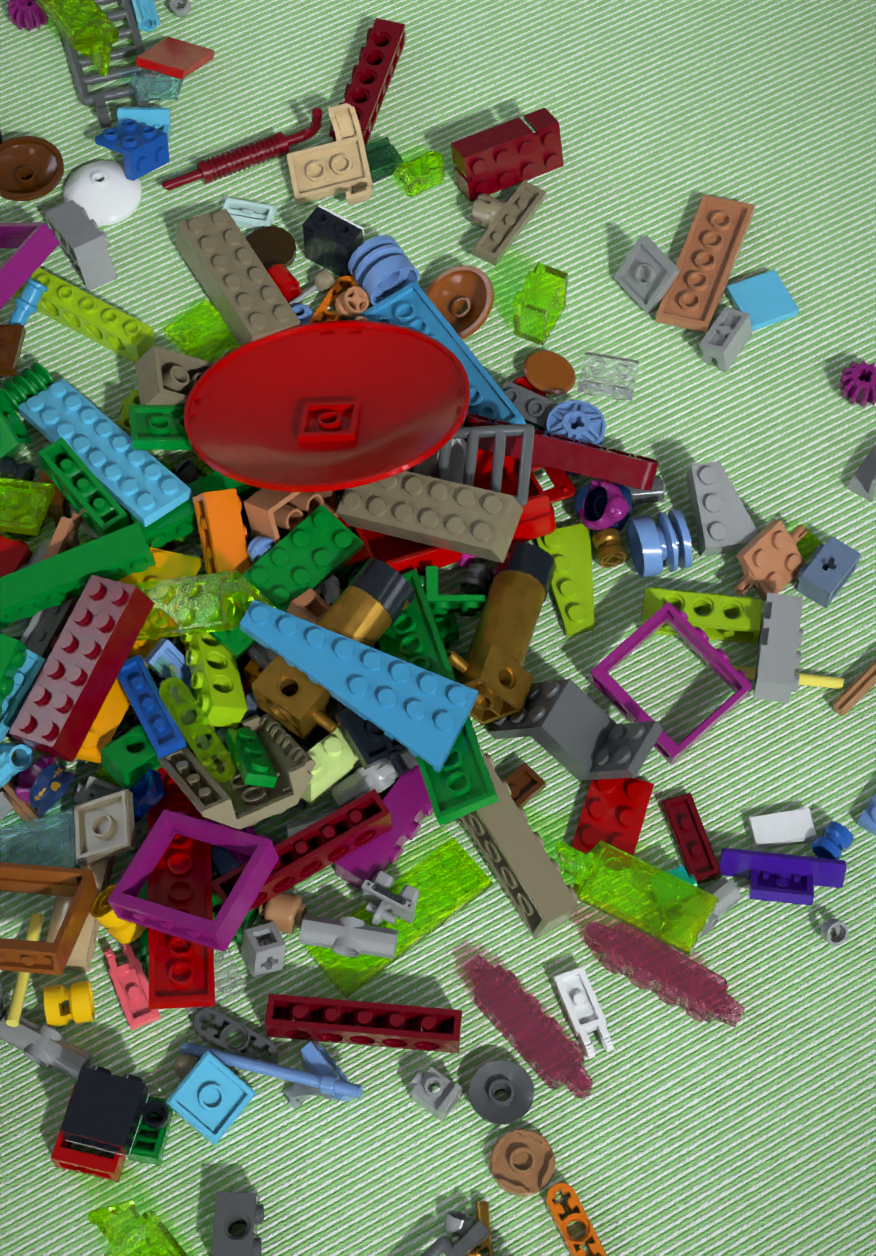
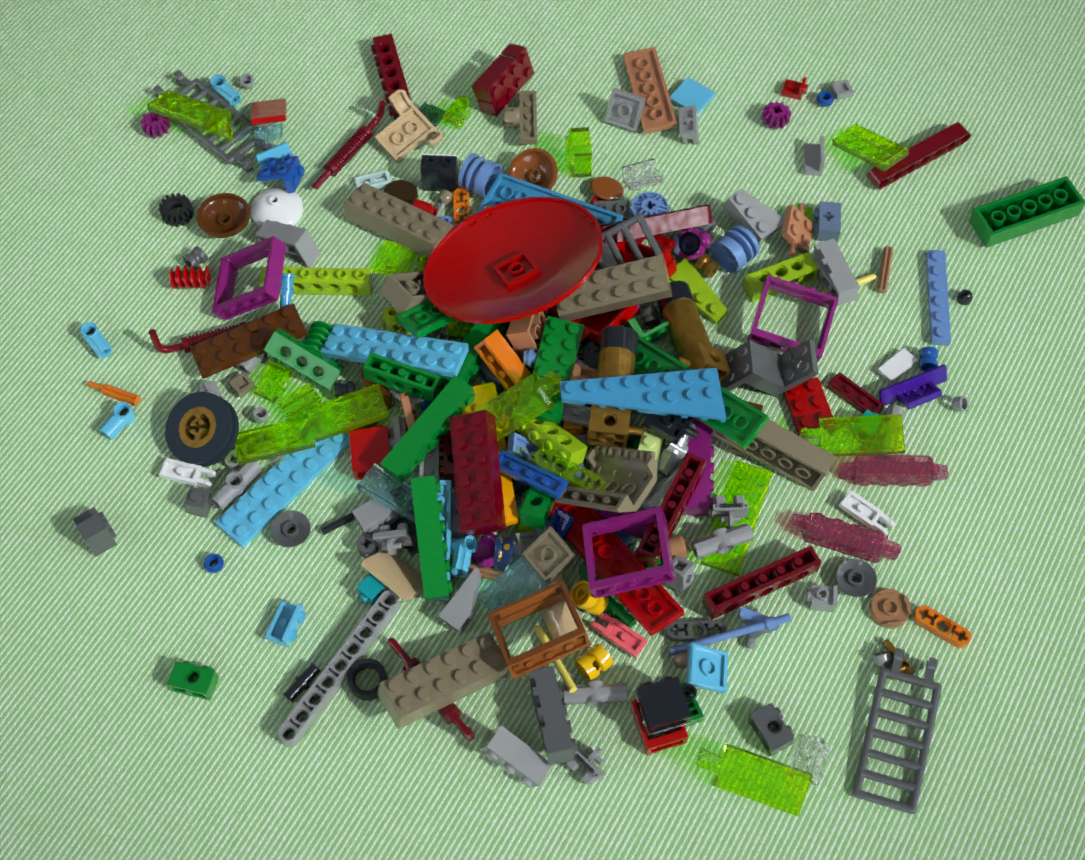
camera: 30 degrees left, 0 degrees up
(250, 758) = (610, 471): green plate -> none
(356, 297) = (473, 201): nougat wheel -> none

